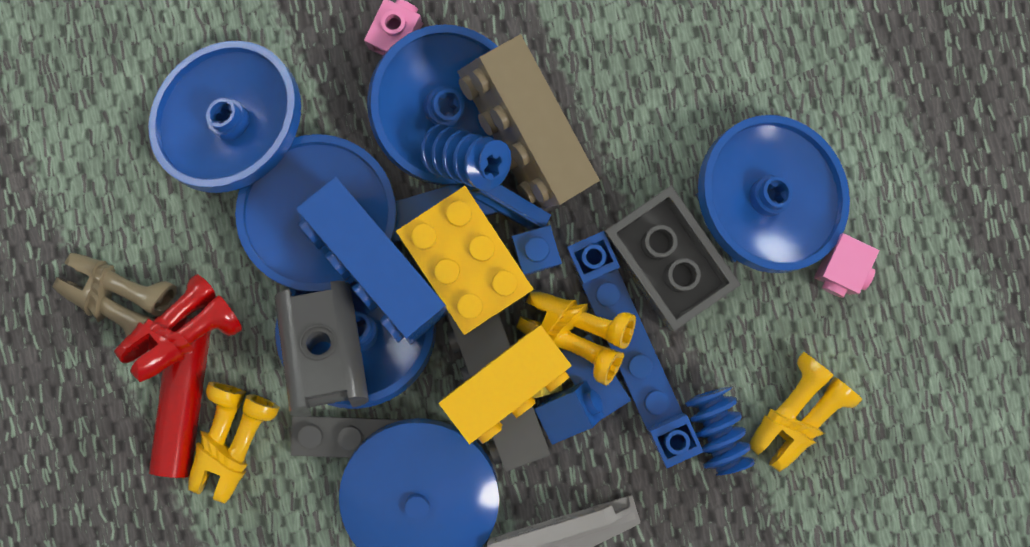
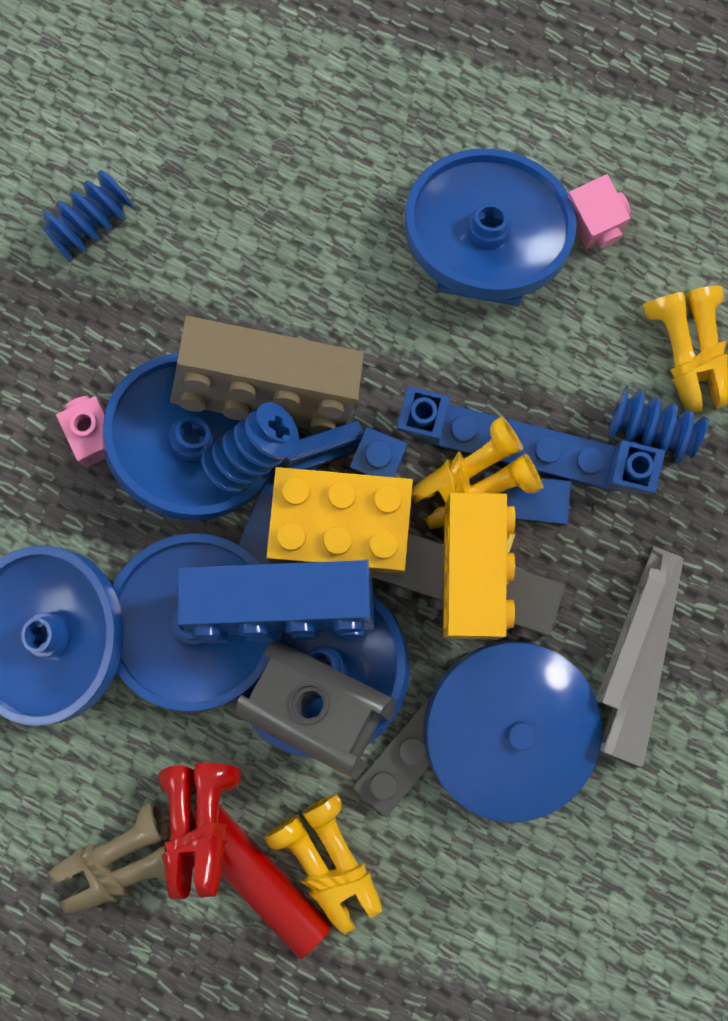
camera: 50 degrees left, 5 degrees down
(570, 412) = (541, 539): blue brick -> none
(671, 259) = (478, 350): dark grey brick -> none

